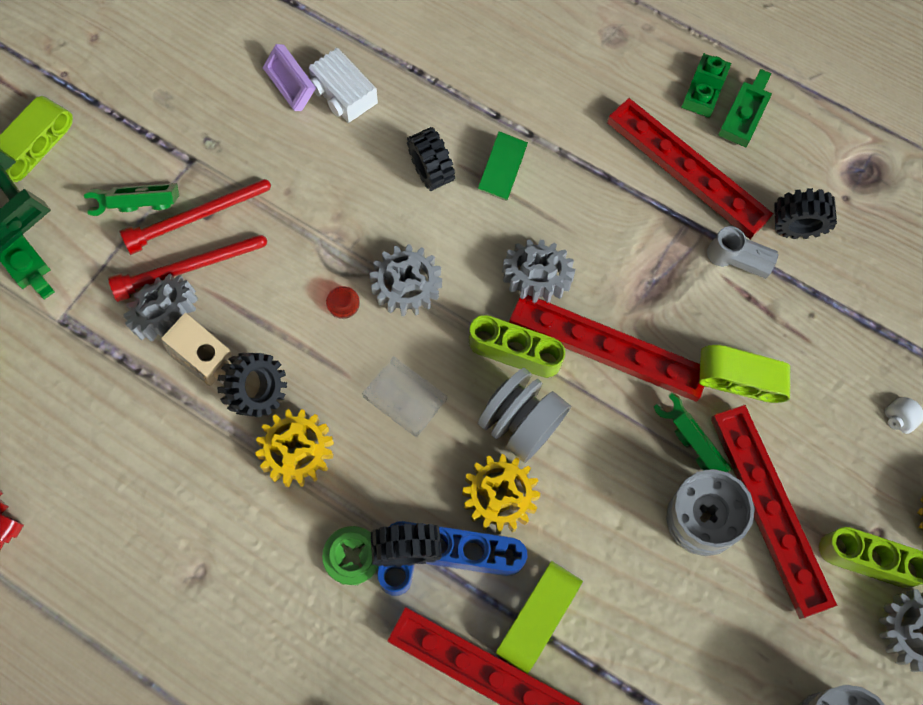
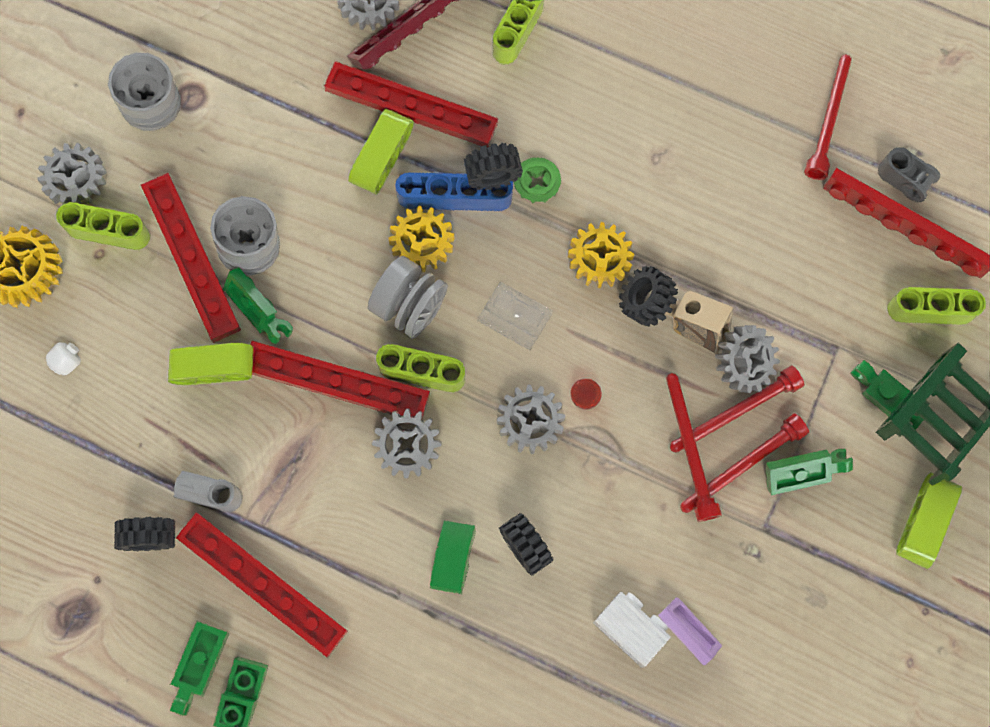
camera: 175 degrees right, 5 degrees up
(245, 172) = (706, 506): none -> red piece

